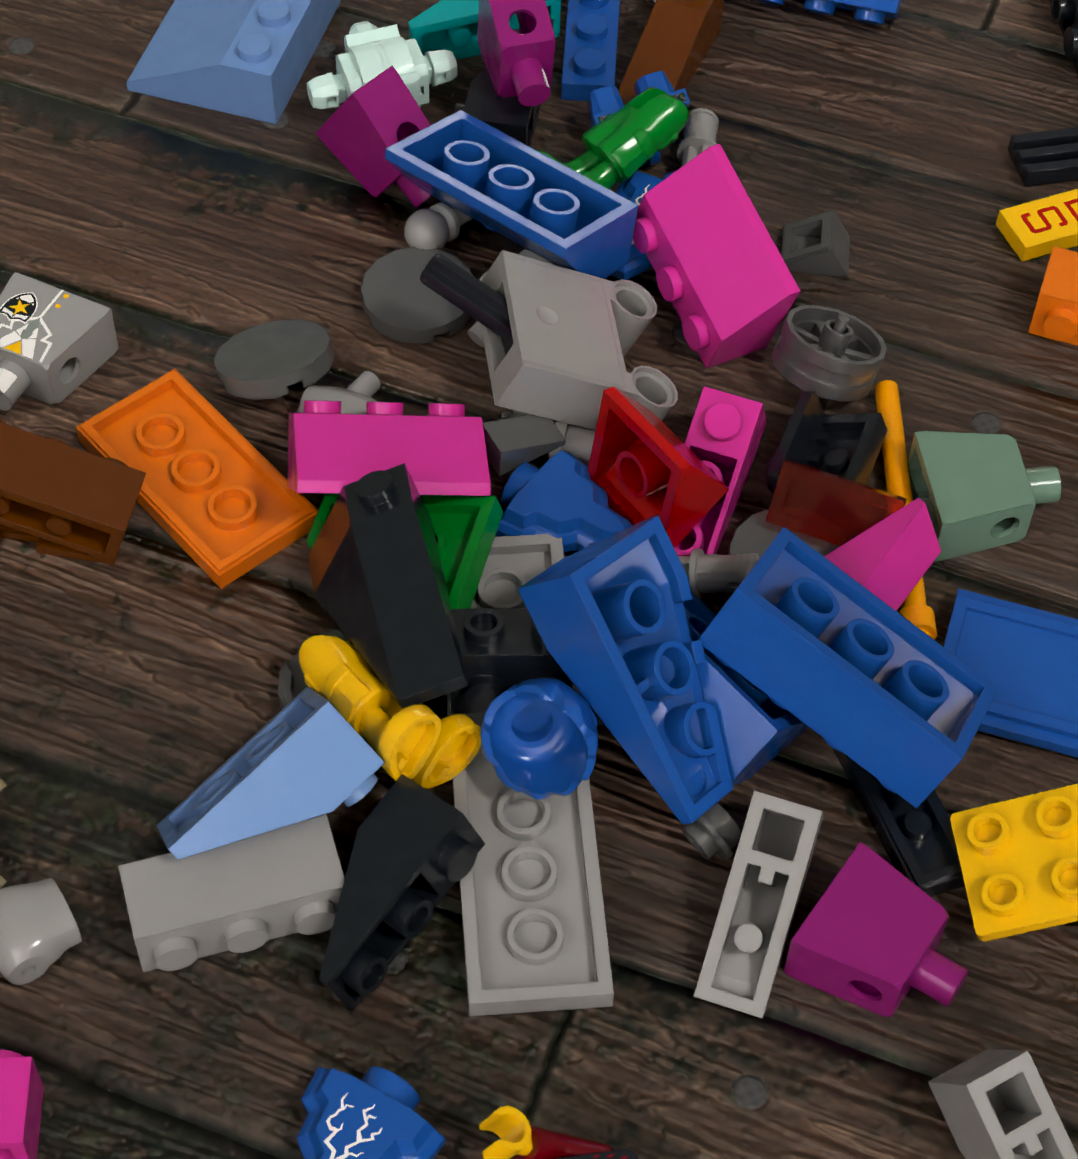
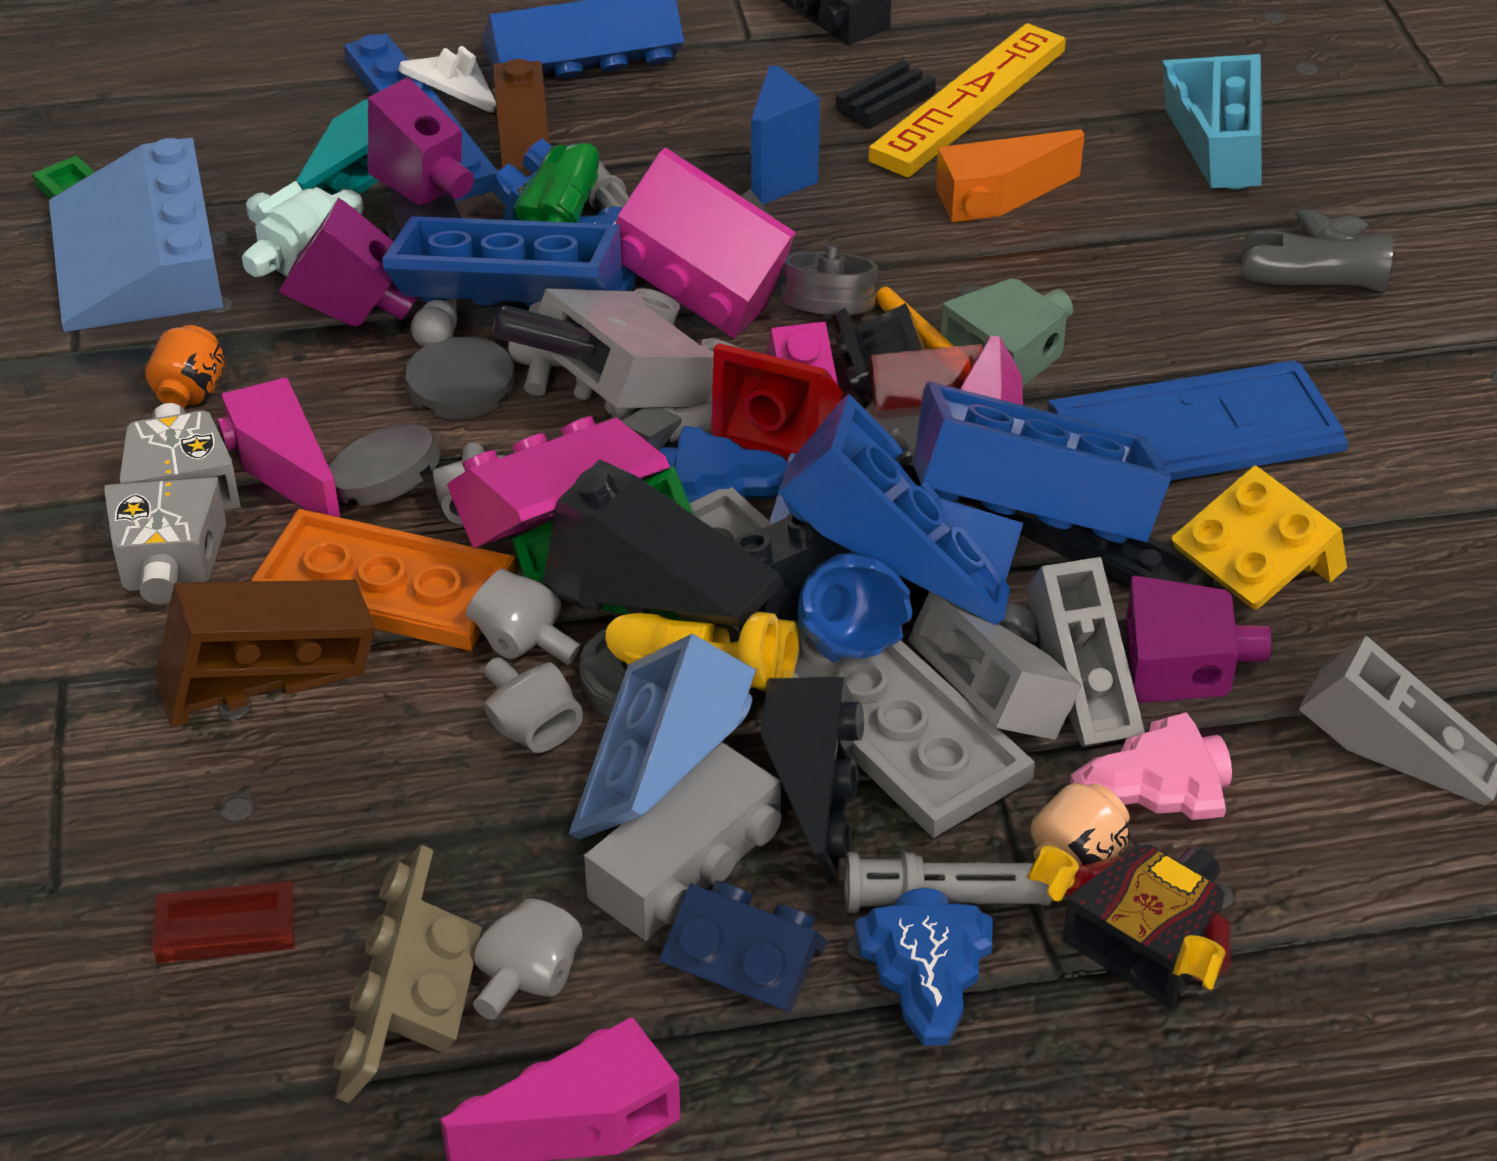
camera: 30 degrees left, 10 degrees down
(108, 265) = (178, 448): none -> light grey torso
(184, 176) = (185, 365): none -> orange head
(205, 286) = (278, 444): none -> dark pink slope
(207, 1031) = (741, 945): none -> dark blue bracket
(215, 678) = (532, 706): none -> light grey piece
(268, 578) = (520, 615): none -> light grey piece
(409, 1045) = (884, 880): none -> light grey pin
(599, 1093) = (1083, 822): none -> light nougat head
(653, 881) = (995, 669): none -> light grey slope
(735, 1071) = (1166, 770): none -> bright pink rock
(896, 167) = (784, 137): none -> blue slope

